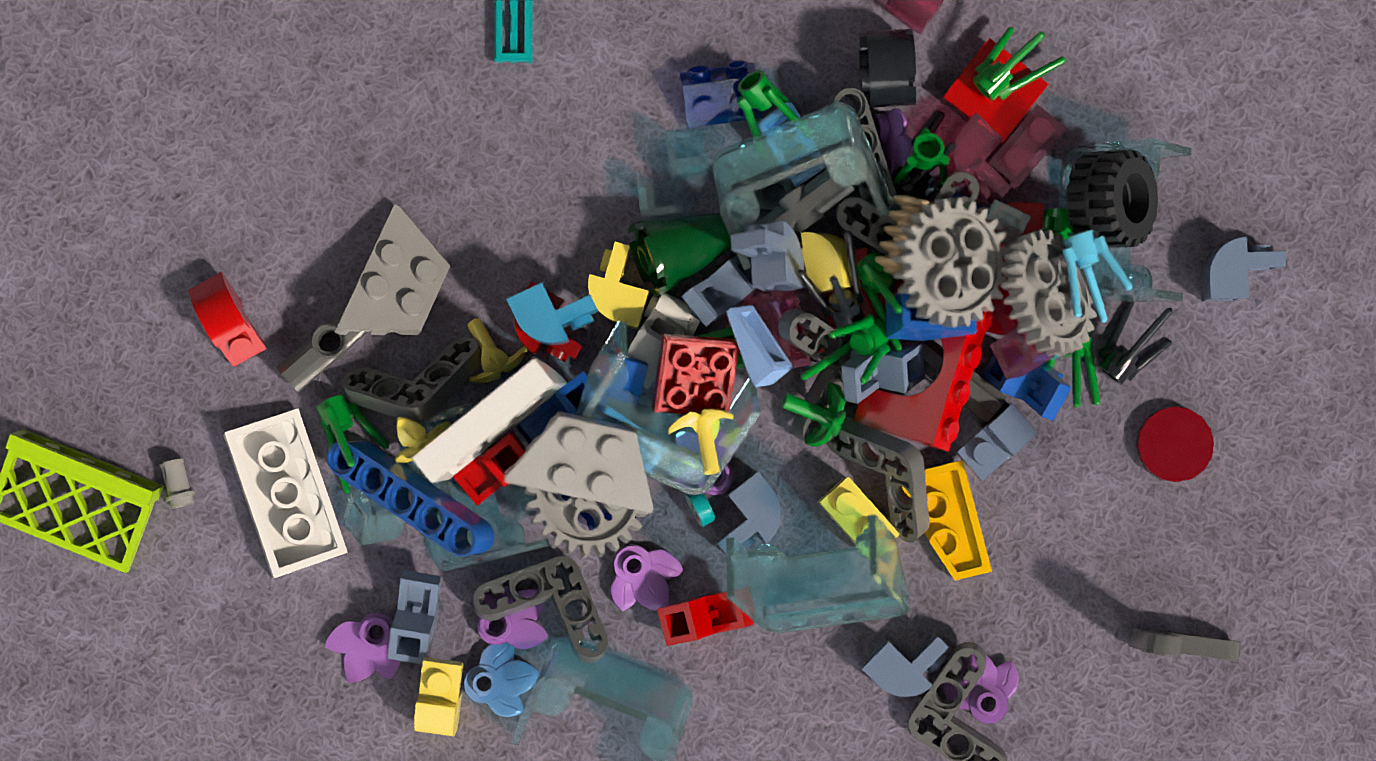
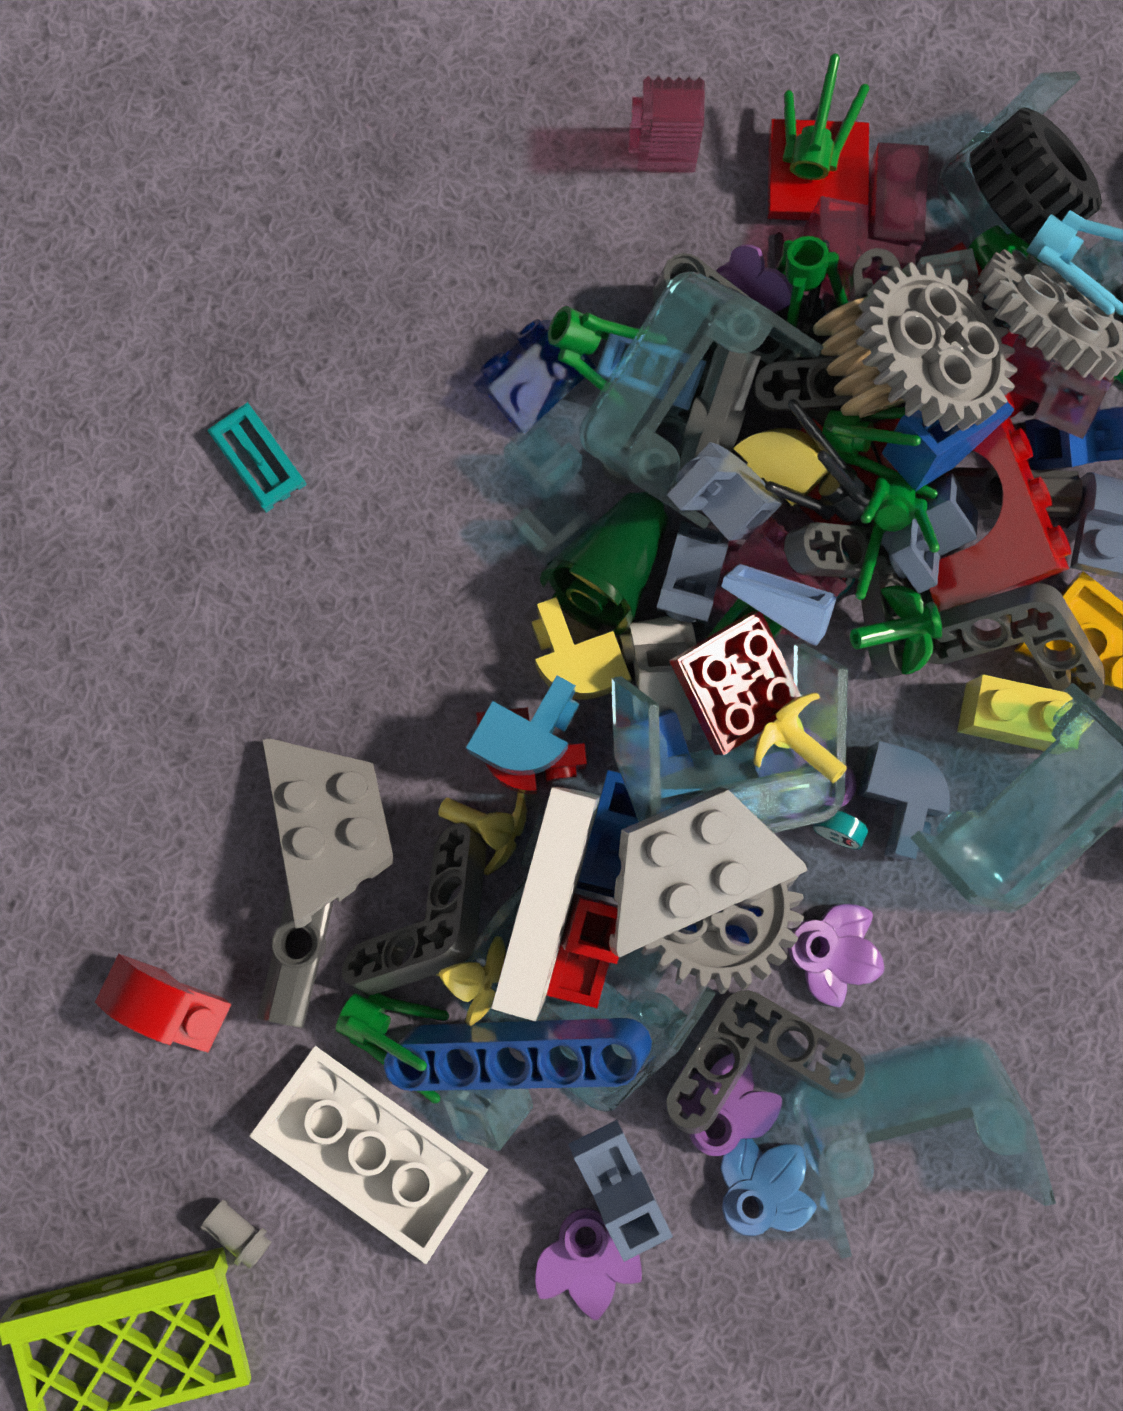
camera: 30 degrees left, 5 degrees down
(439, 697) = (715, 1262): light yellow brick -> none
(700, 618) = (936, 947): red brick -> none
(888, 67) = (692, 212): black brick -> none

